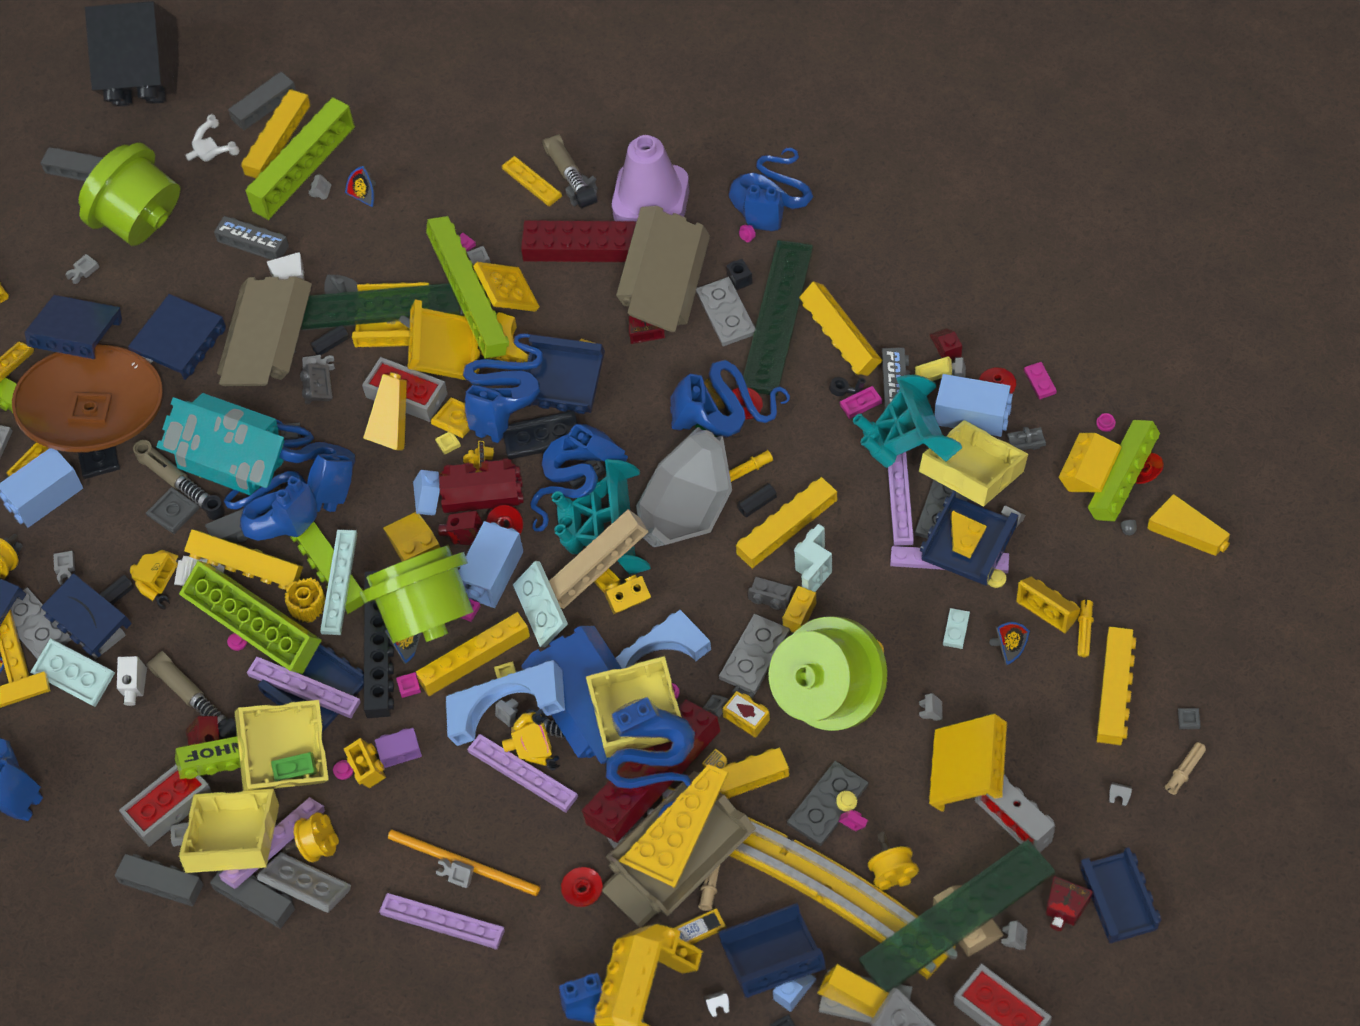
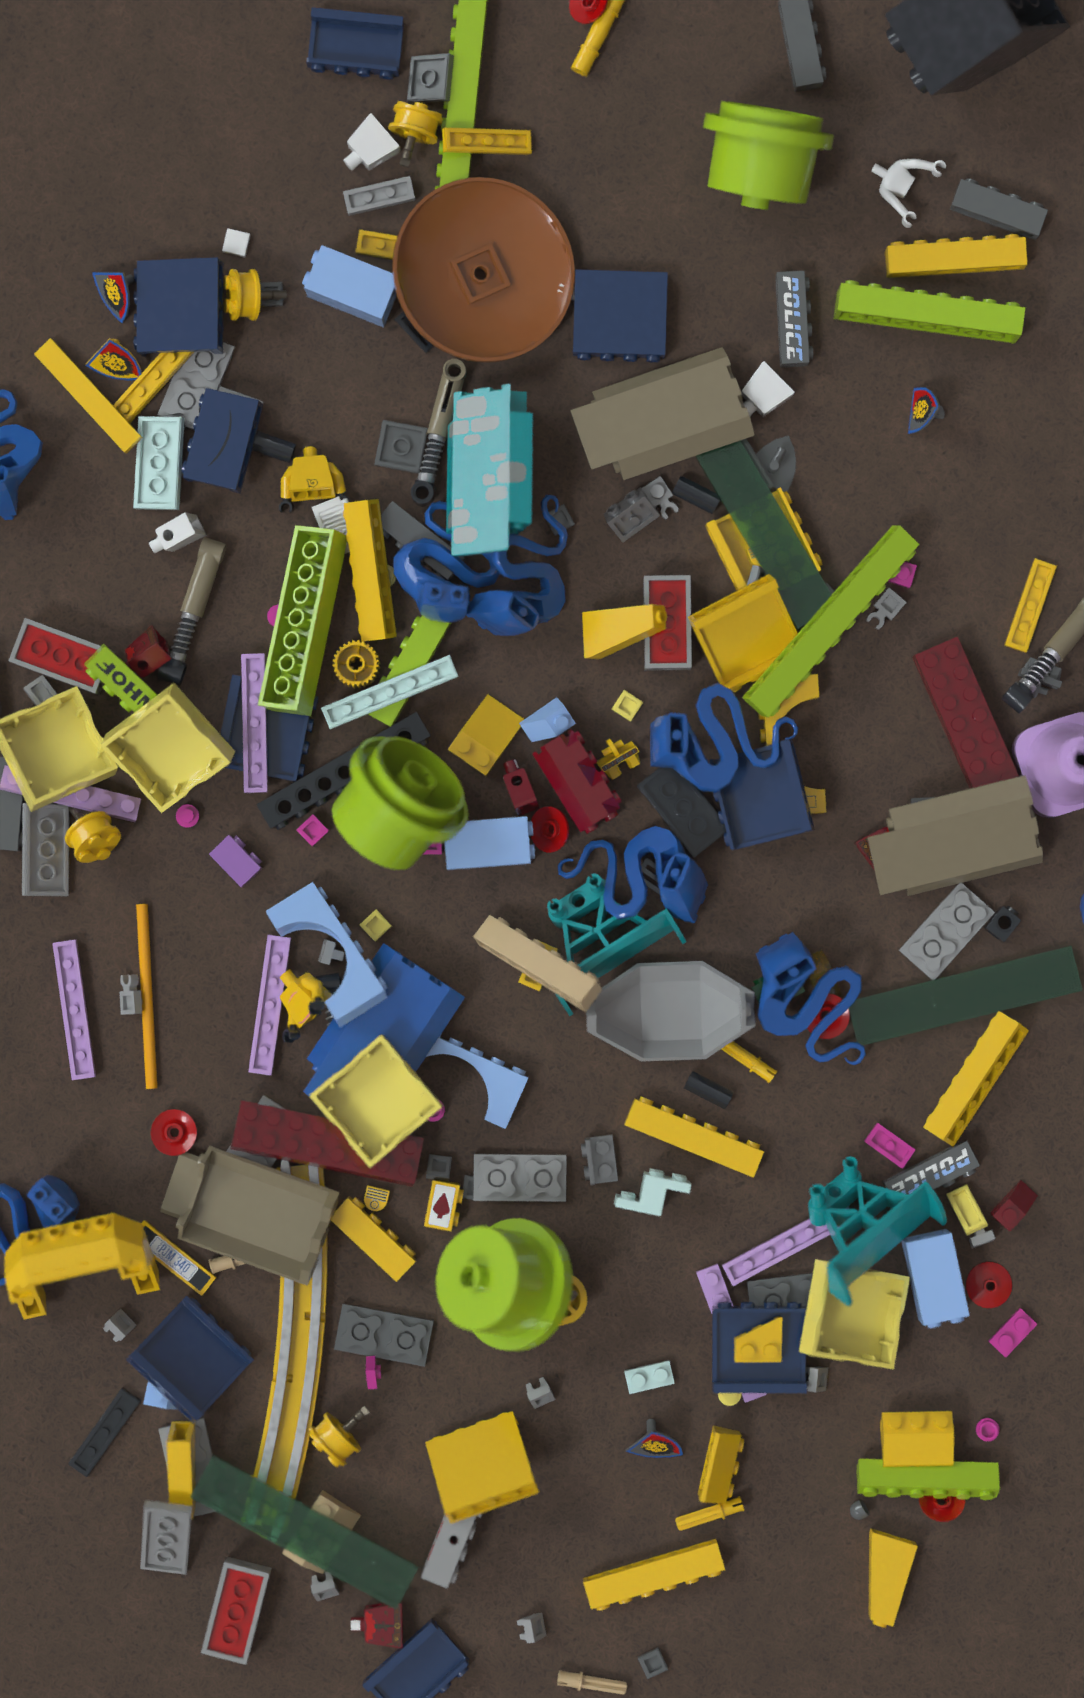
camera: 60 degrees right, 30 degrees up
(63, 564) = (280, 369): light grey plate -> none
(71, 326) = (571, 187): dark blue panel -> none
(83, 267) = (664, 143): light grey plate -> none
(294, 766) = (157, 777): bright green plate -> none
(320, 187) = (904, 357): light grey tile -> none
(364, 762) = (200, 838): yellow brick -> none
(452, 418) = (660, 696): yellow tile -> none
(473, 654) = (377, 881): yellow brick -> none
(506, 286) = (855, 665): yellow plate -> none
(540, 604) = (467, 922): light aqua piece -> none
(627, 595) = (523, 1010): yellow brick -> none
(645, 720) = (348, 1127): blue hips -> none
(672, 837) = (257, 1207): yellow wing -> none
(747, 233) = (1066, 903): dark pink plate -> none
(799, 608) = (590, 1203): yellow brick -> none
(843, 385) = (901, 1118): black plate -> none
(846, 801) = (387, 1357): light yellow plate -> none
(1027, 438) = (920, 1354): dark grey hips -> none

